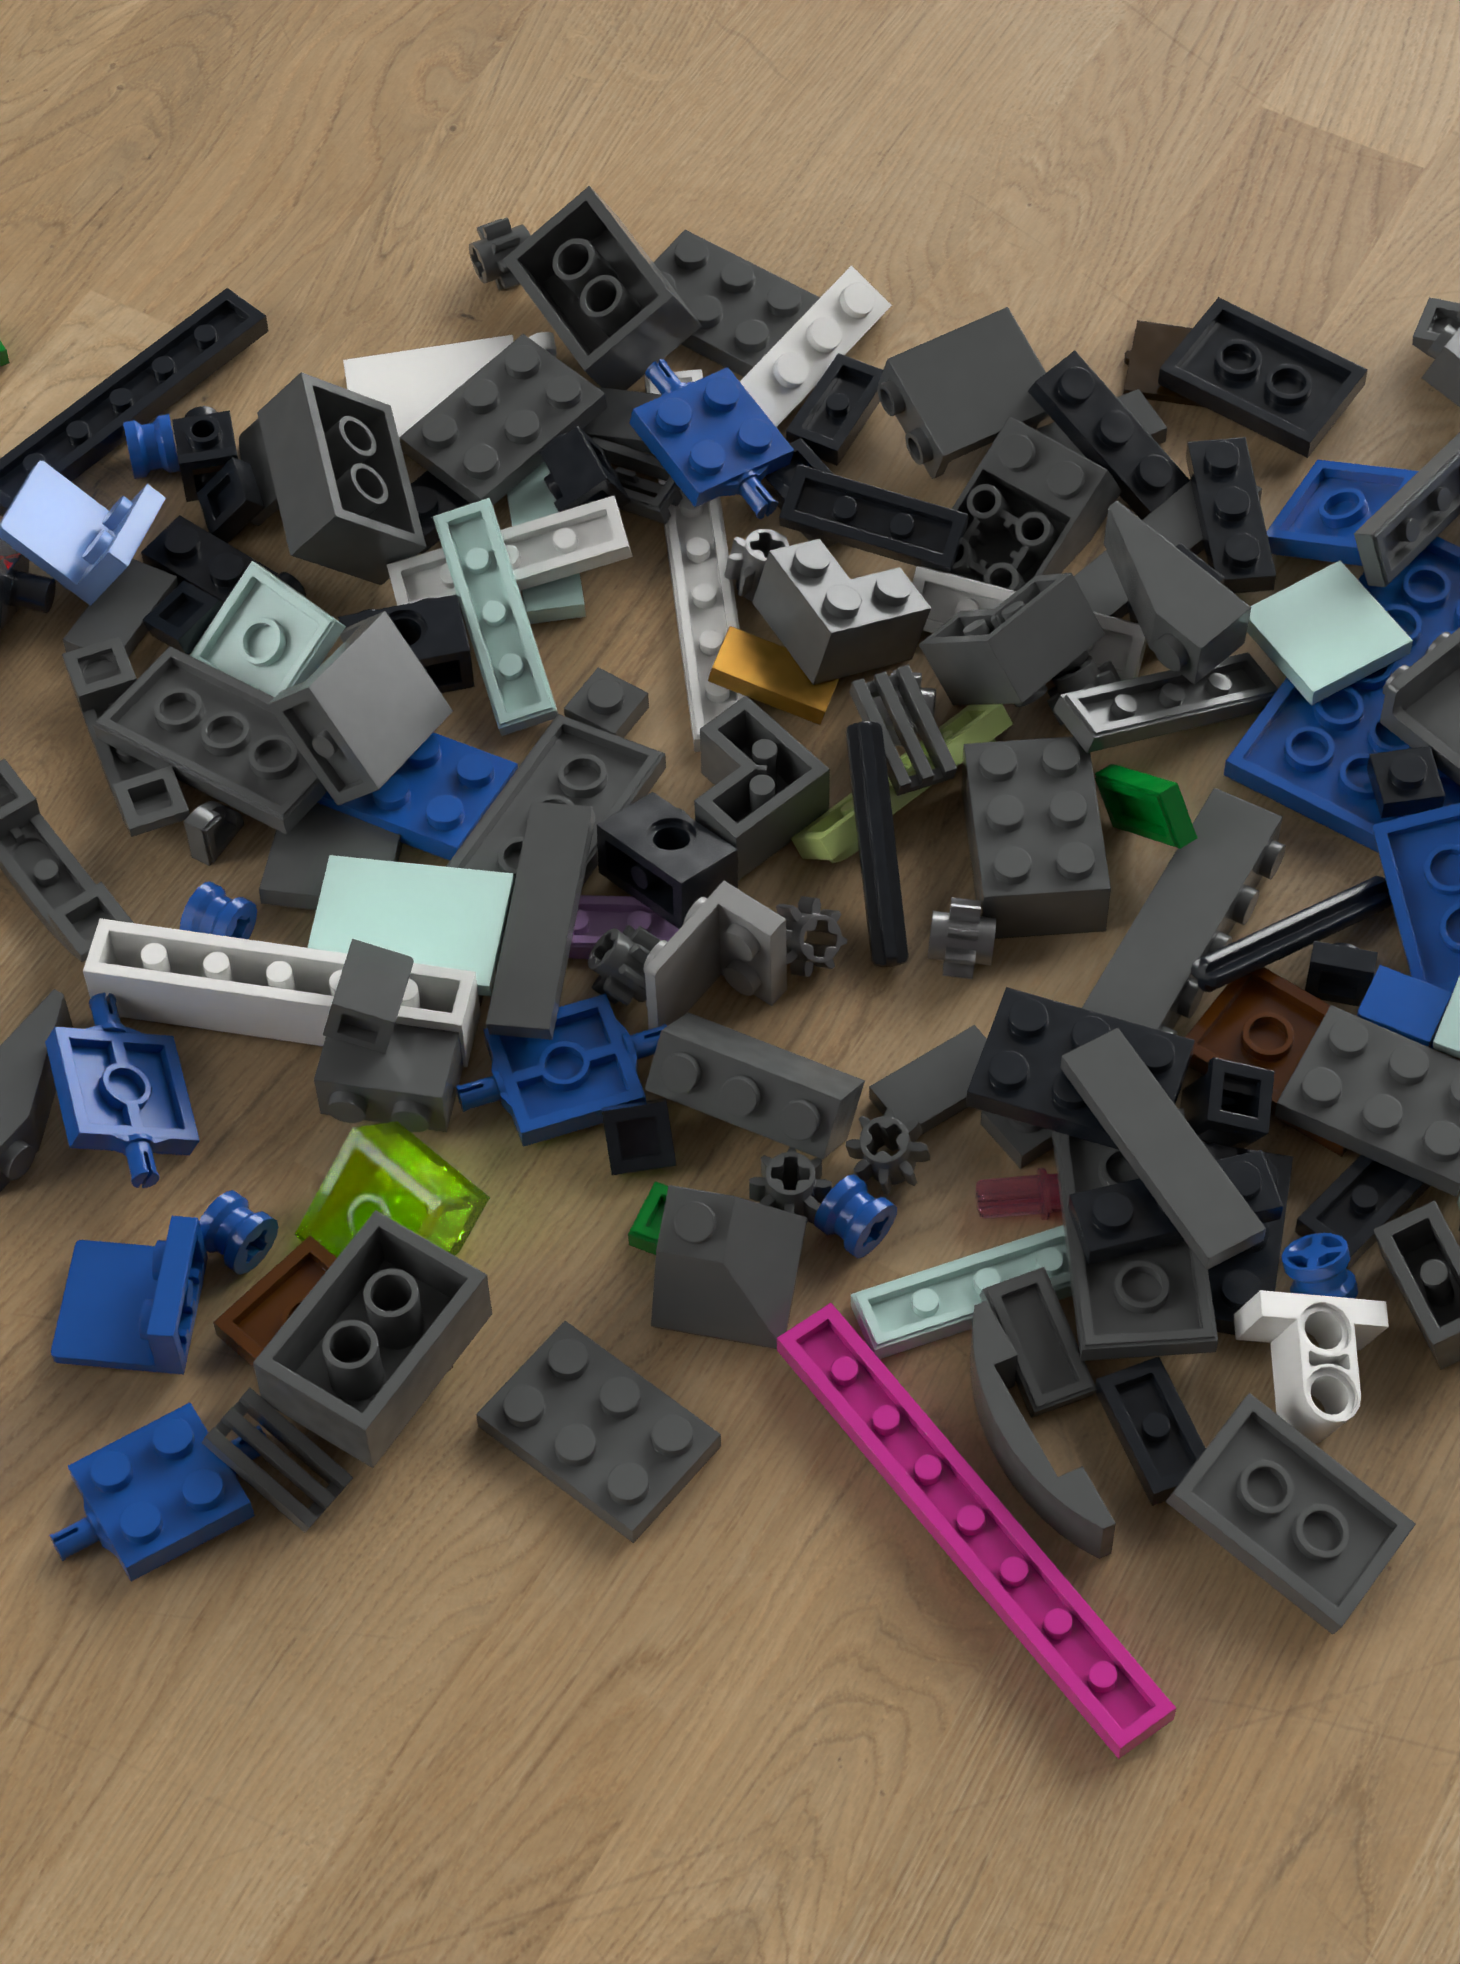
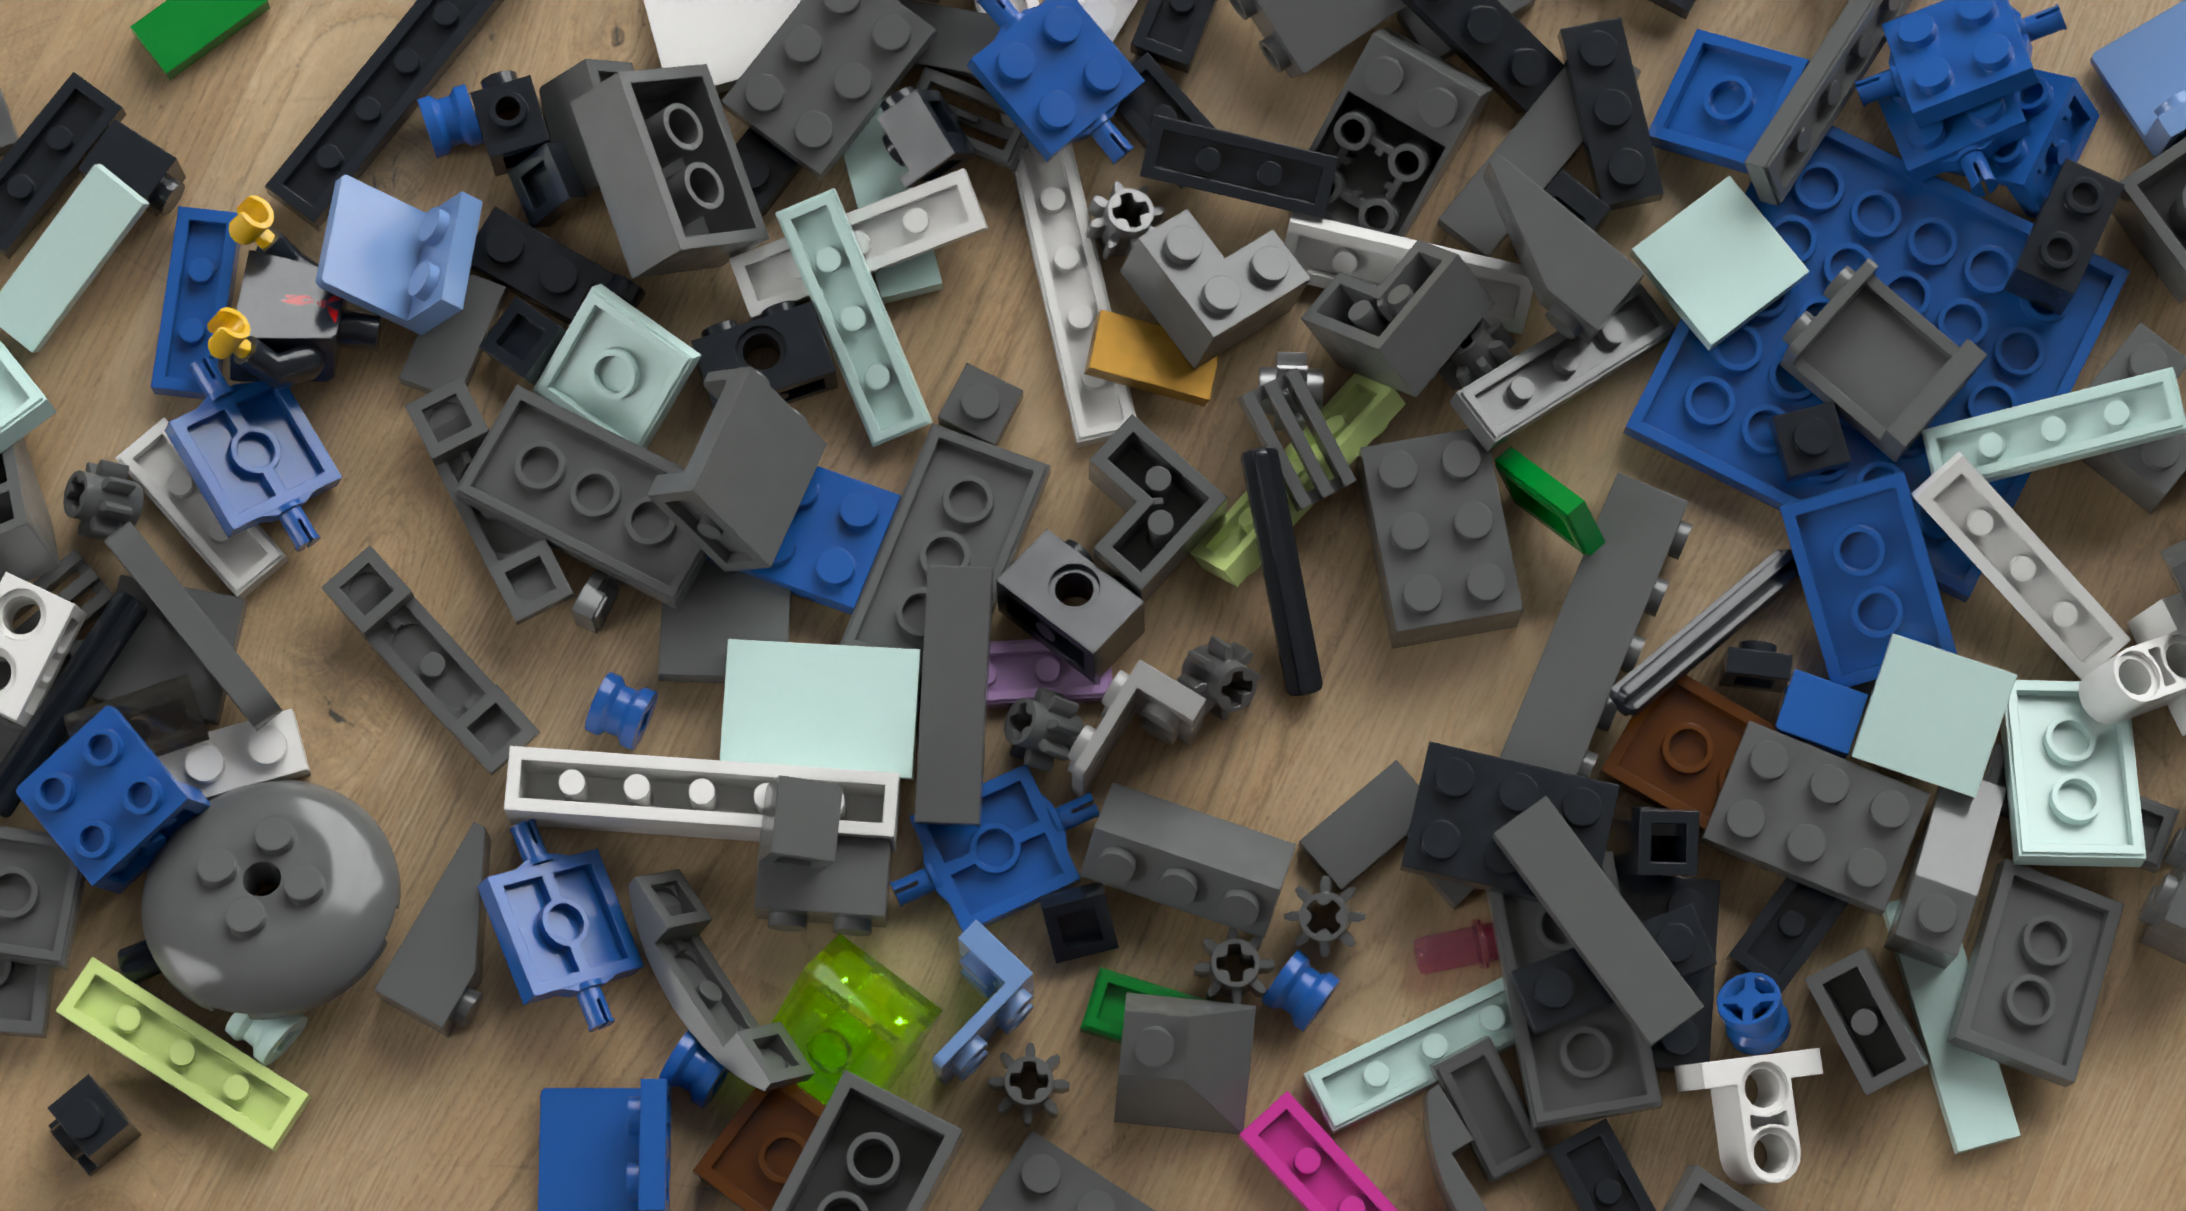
camera: 10 degrees left, 20 degrees up
(231, 1113) = (670, 929): none -> dark grey slope
(539, 1197) = (988, 969): none -> medium blue bracket
(565, 1294) = (1042, 1095): none -> dark grey gear
(962, 938) = (1375, 664): flat silver gear -> none

